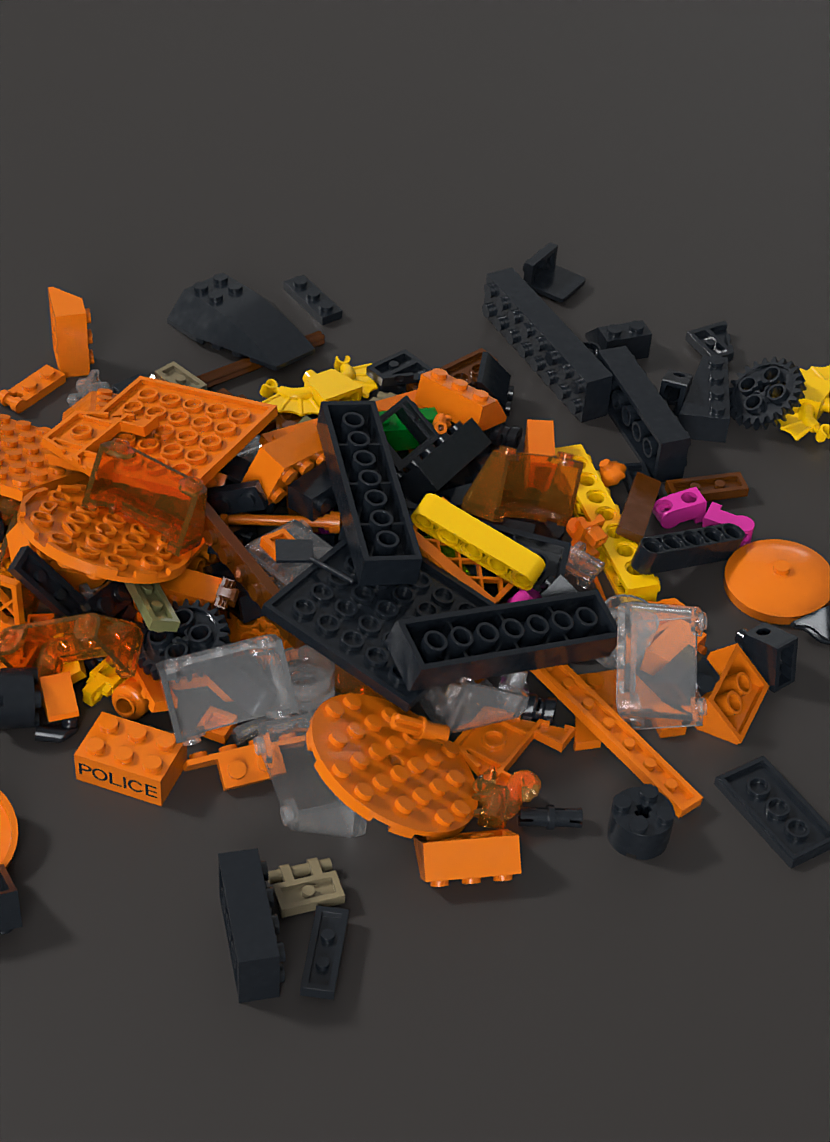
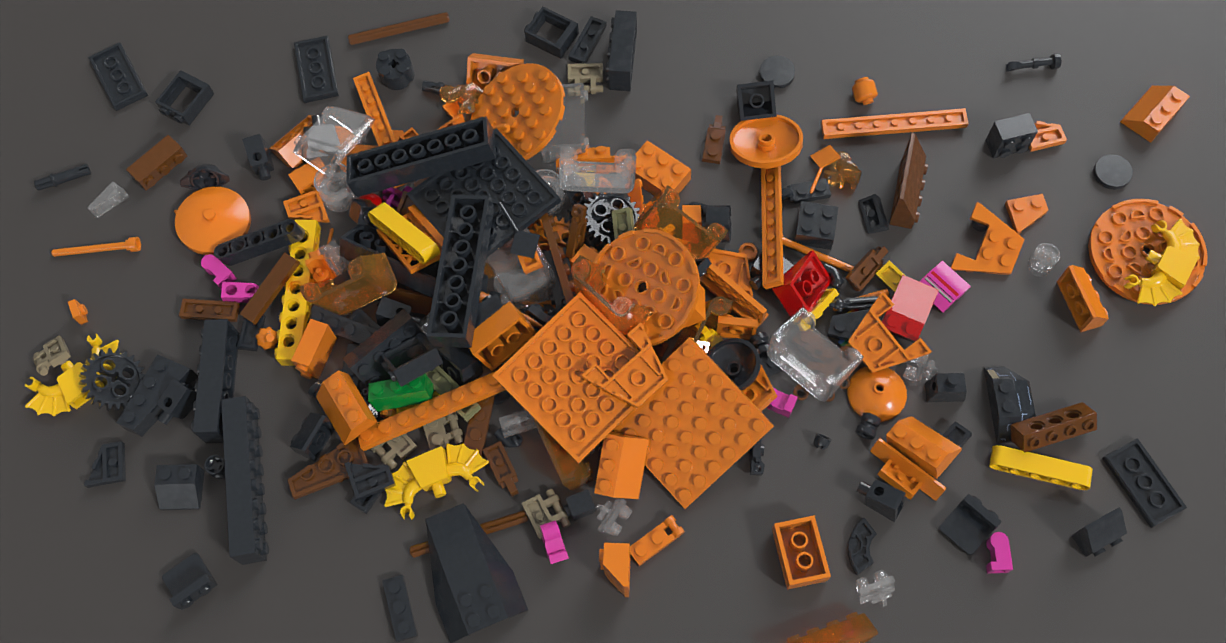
camera: 155 degrees left, 25 degrees up
(45, 835) = (714, 141): none -> reddish brown hinge
(153, 355) = (553, 542): none -> dark pink leg
(402, 924) = (570, 32): none -> black window
(442, 423) = (376, 373): orange arm -> none
(676, 904) = (398, 28): none -> reddish brown axle

